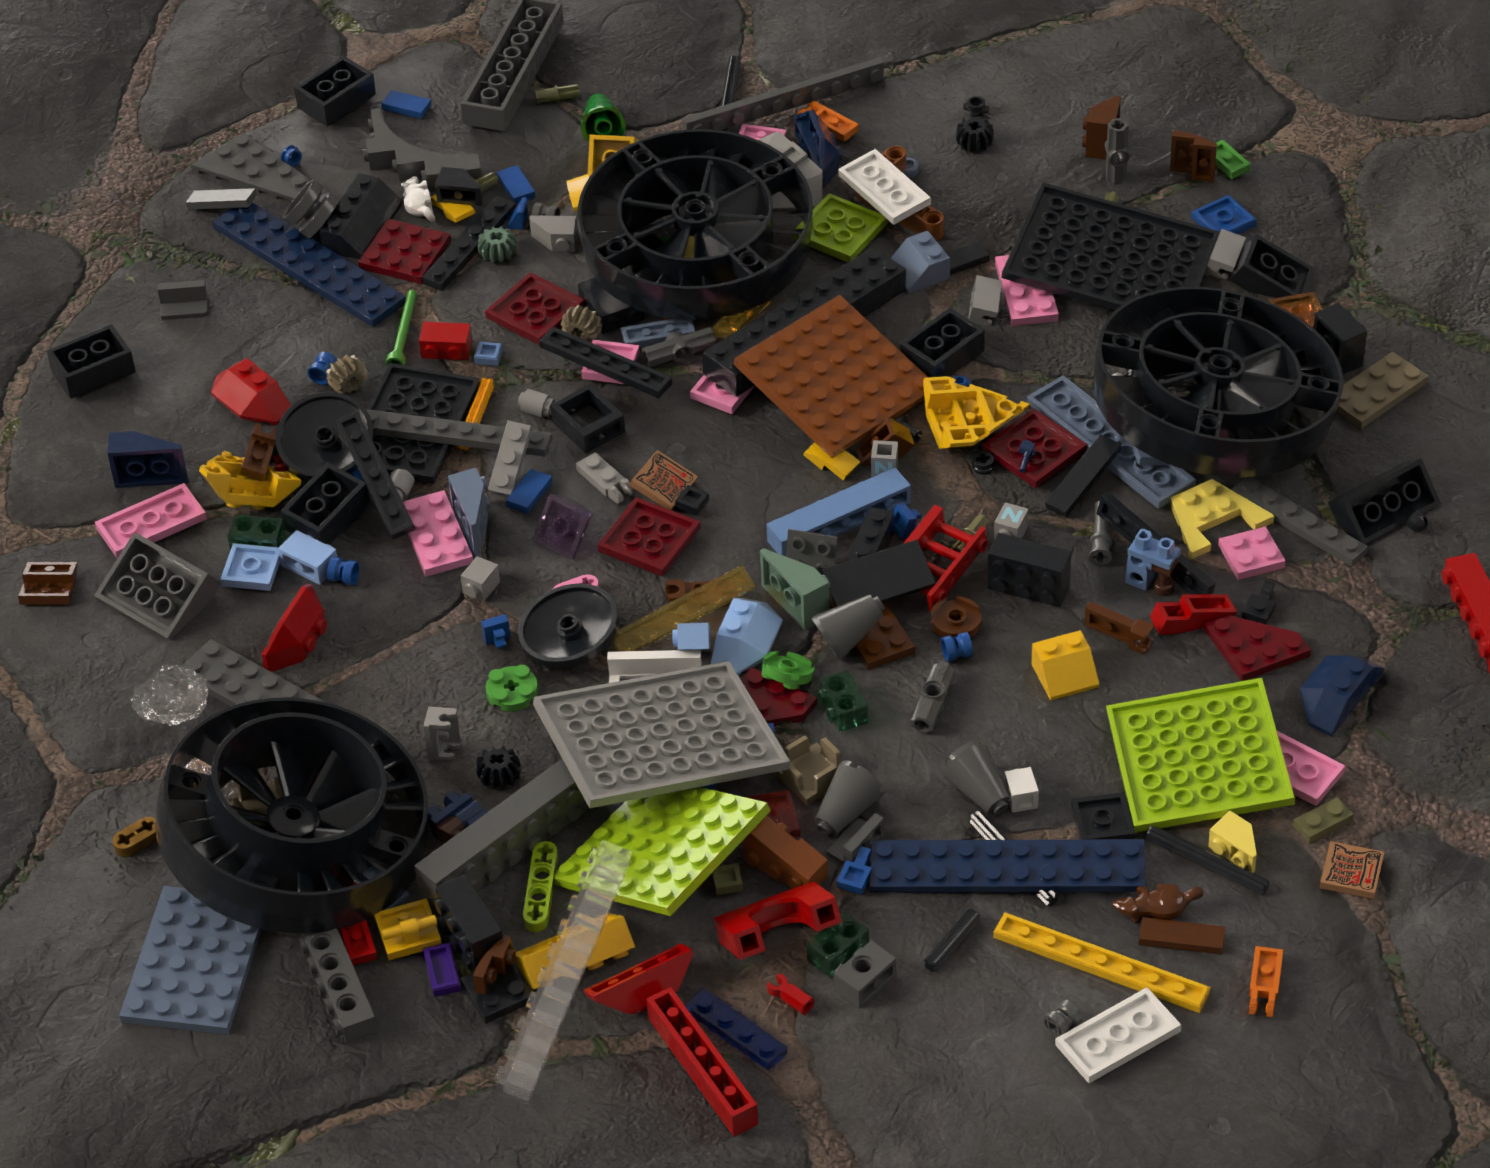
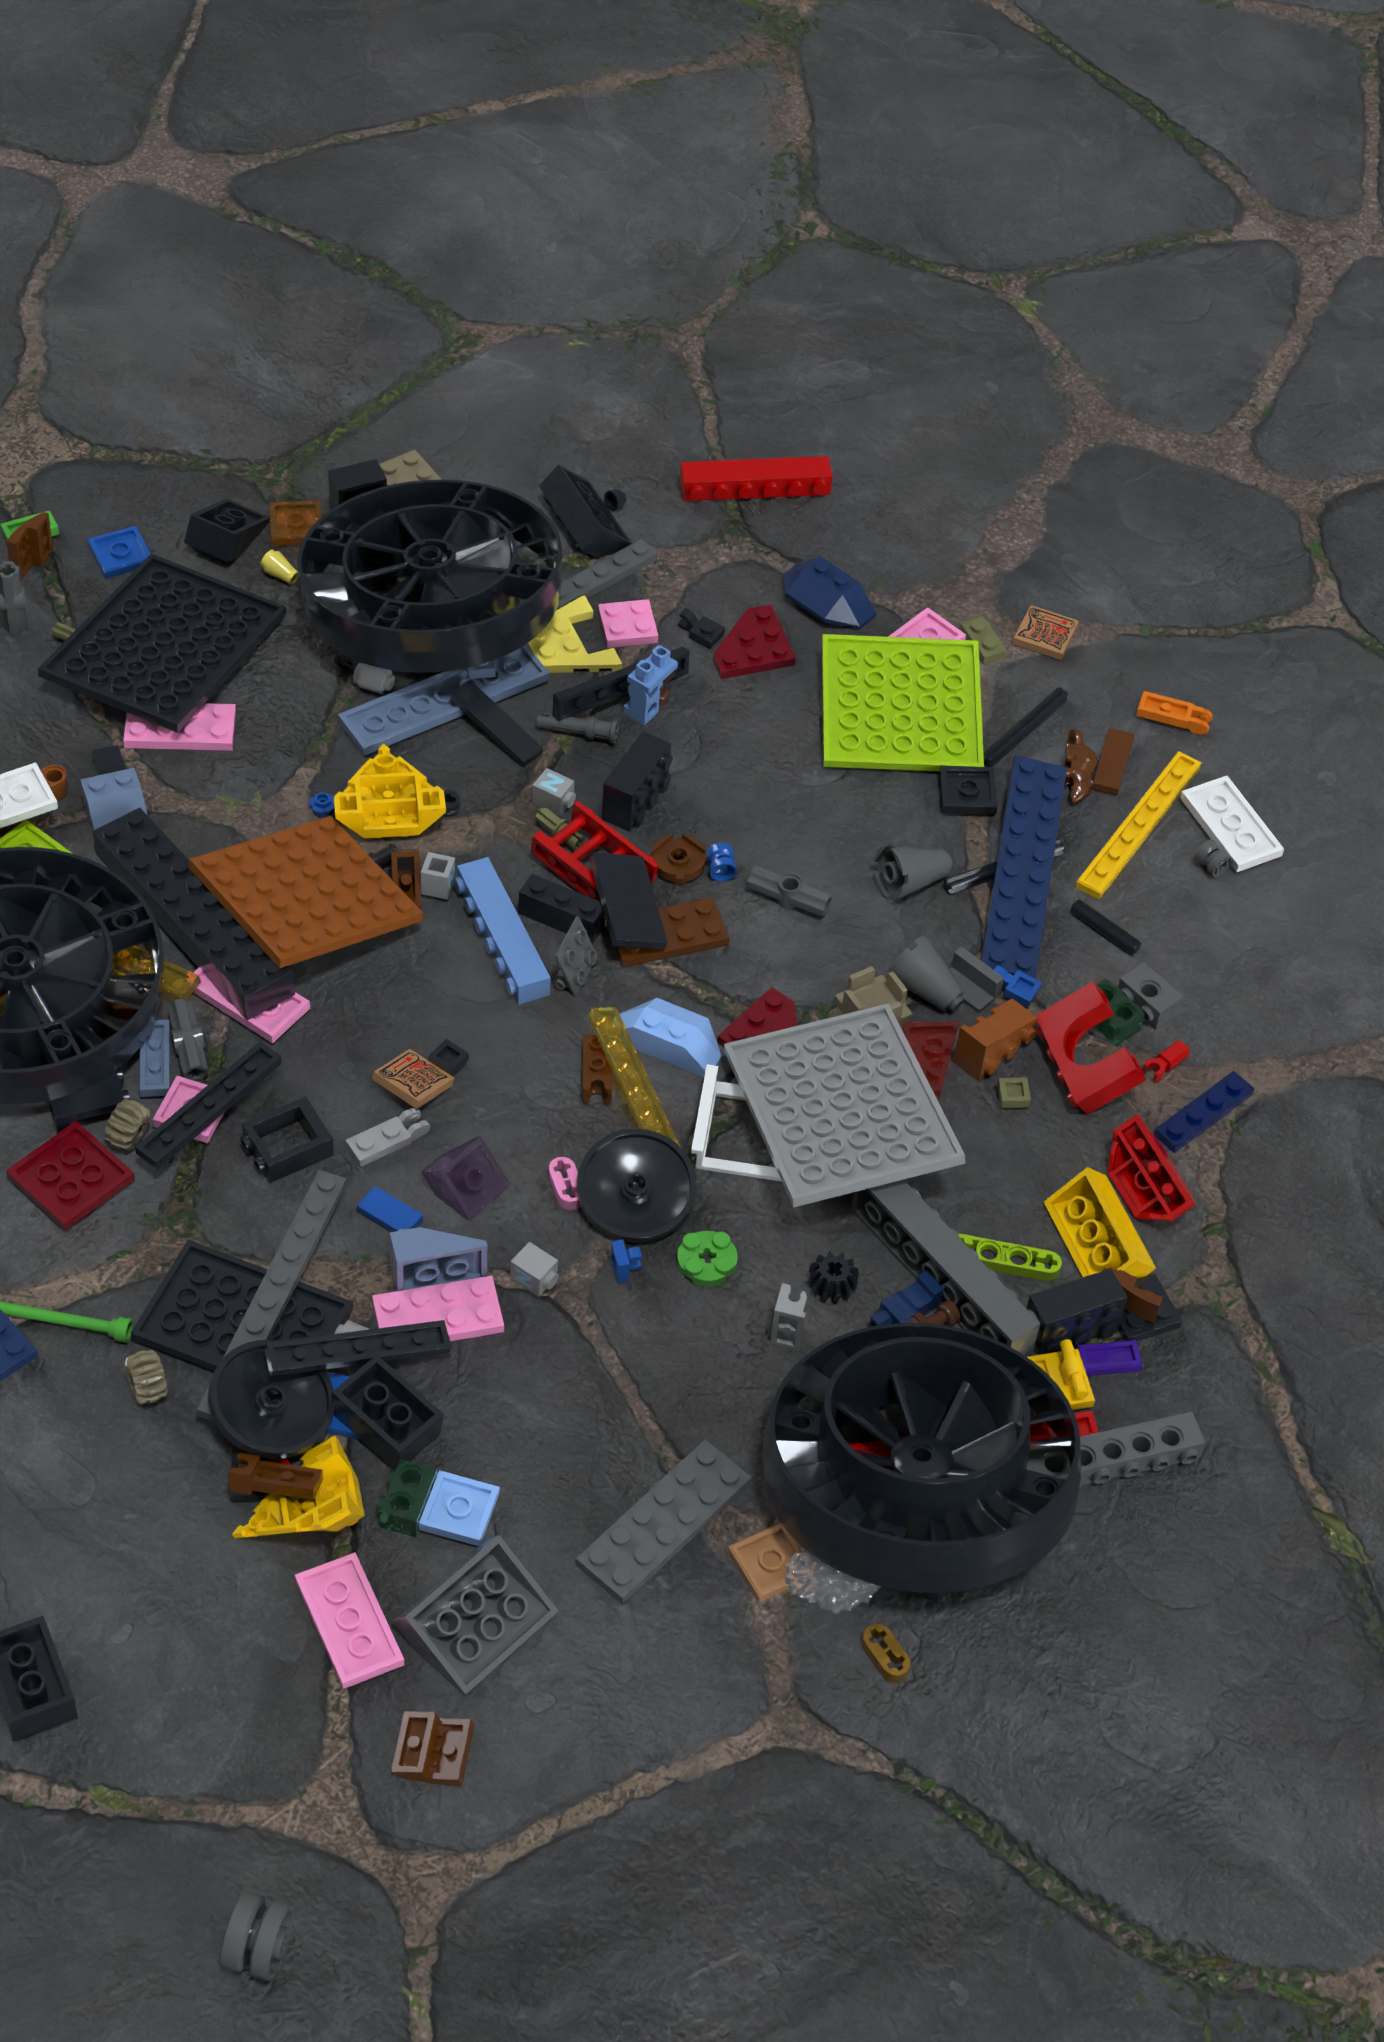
camera: 90 degrees left, 5 degrees up
(145, 460) = (247, 1617): dark blue slope -> none
(171, 696) = (682, 1597): clear hair -> none
(190, 967) = (1087, 1606): sand blue plate -> none
(250, 393) = (132, 1496): red wedge -> none
(296, 631) = (580, 1459): red wedge -> none
(306, 556) = (459, 1442): light blue brick -> none
(317, 370) = (116, 1408): blue wheel -> none
(343, 570) = (491, 1406): blue wheel -> none
(445, 340) = (105, 1271): red brick -> none
(479, 403) = (242, 1252): light orange axle -> none
(488, 353) = (132, 1233): medium blue tile -> none
(510, 458) = (350, 1215): light grey plate -> none
(535, 403) = (246, 1188): light grey brick -> none
(564, 972) = (1160, 1223): clear brick -> none
(649, 536) = (497, 1103): dark red plate -> none
(673, 841) = (1013, 1124): lime plate -> none
(692, 636) = (683, 1069): light blue brick -> none
(702, 1062) = (1258, 1134): red brick -> none
(787, 669) = (733, 1001): bright green plate -> none
(795, 587) = (625, 974): sand green slope -> none
(841, 465) = (410, 935): yellow slope -> none
(843, 701) = (782, 963): clear green brick -> none
(848, 623) = (694, 934): dark grey cone -> none
(905, 520) = (523, 871): blue tile -> none
(944, 344) = (268, 797): black brick -> none
(984, 300) = (196, 760): light grey hinge -> none
(1021, 789) = (924, 836): white brick -> none
(1028, 450) = (456, 754): dark blue hand -> none
(1053, 447) = (444, 753): dark red plate -> none
(1064, 665) = (762, 783): yellow slope -> none
(1120, 627) = (718, 732): reddish brown plate -> none
(1190, 612) = (707, 679): red slope -> none
(1225, 254) = (188, 554): light grey hinge -> none
(1234, 840) = (1009, 699): light yellow slope -> none

